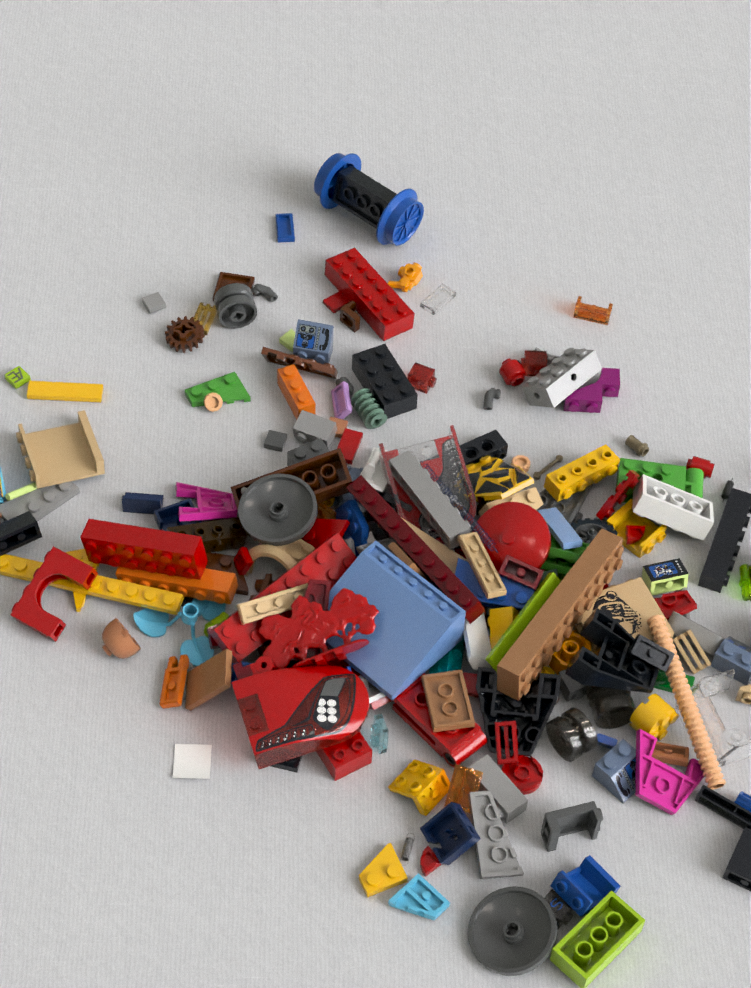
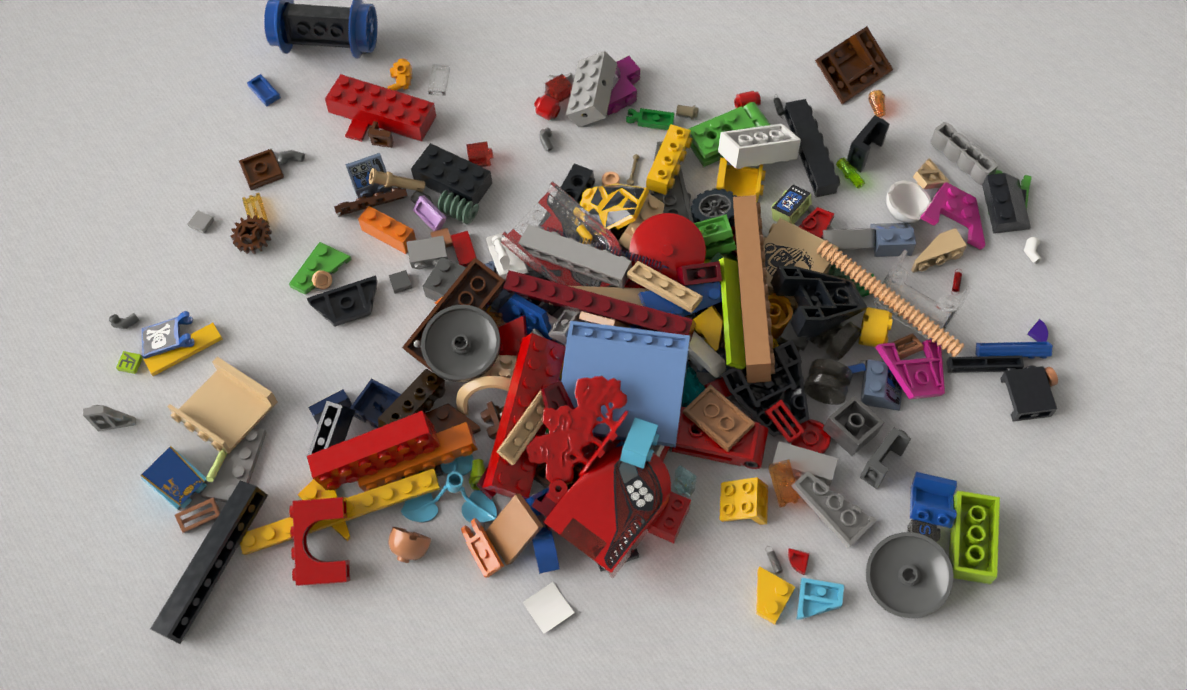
camera: 30 degrees left, 10 degrees up
(35, 345) = (123, 323): none -> dark grey arm
(59, 373) = (166, 336): none -> flag
(132, 511) = (332, 426): none -> black brick
(209, 503) = (393, 370): dark pink wing -> none
(219, 431) = (346, 302): none -> black wing
(221, 714) = (545, 551): none -> blue brick
(235, 305) = (278, 183): dark grey wheel -> none
(243, 561) = (458, 404): red tile -> none
(288, 339) = (344, 186): yellowish green tile -> none
(325, 352) = (388, 179): none -> tan pin
(358, 672) = (639, 443): none -> medium azure brick
(439, 831) = (807, 516): dark blue piece -> none
(454, 488) = (583, 232): none -> yellow arm
(561, 529) = (701, 218): light blue tile -> none
(564, 783) = (853, 425): none -> flat silver brick
(592, 312) = (569, 20): clear orange hinge -> none
(598, 433) = (651, 118): none -> green plate
(607, 509) = (712, 160): red wing -> none
(634, 533) = (741, 185): red tile -> none
(651, 653) = (844, 276): black plate -> none
(700, 666) = (870, 261): tan tile -> none

